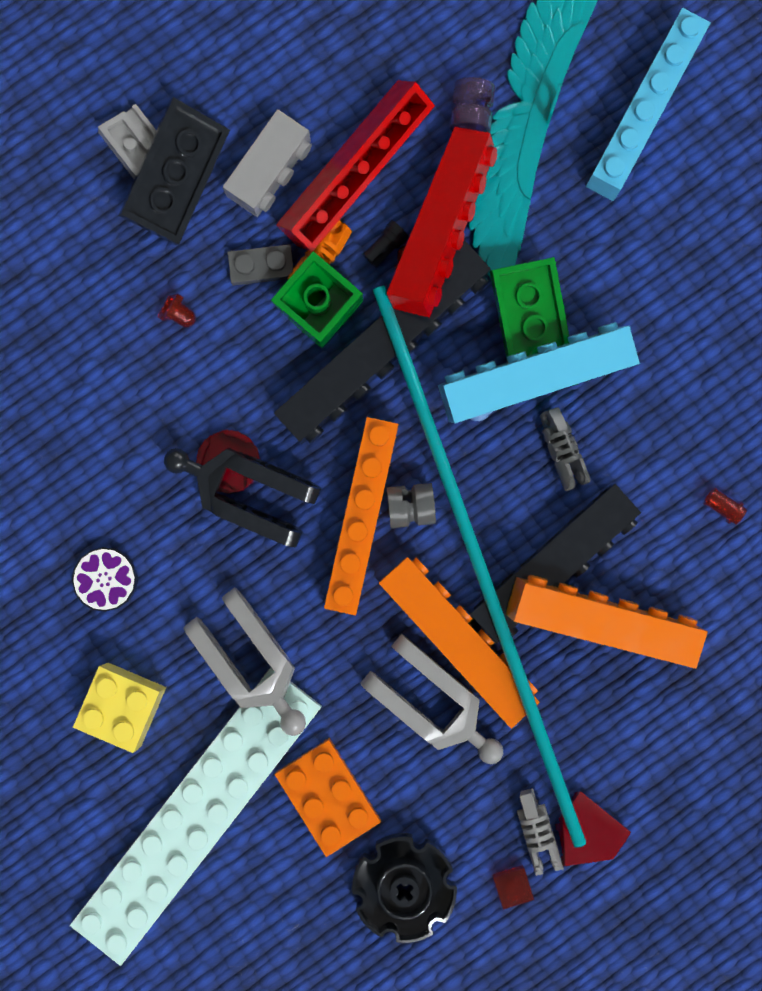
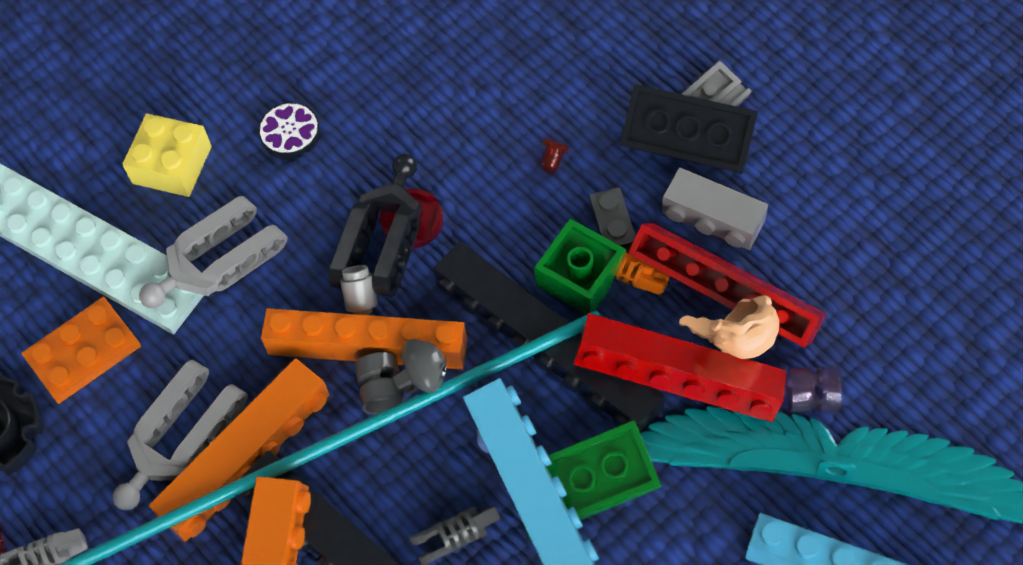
camera: 90 degrees right, 25 degrees down
(309, 518) = (358, 290): none -> light grey brick
(392, 237) = (647, 322): black pin -> none
(414, 459) = (423, 365): none -> dark grey piece
(417, 157) = (744, 332): none -> light nougat hair

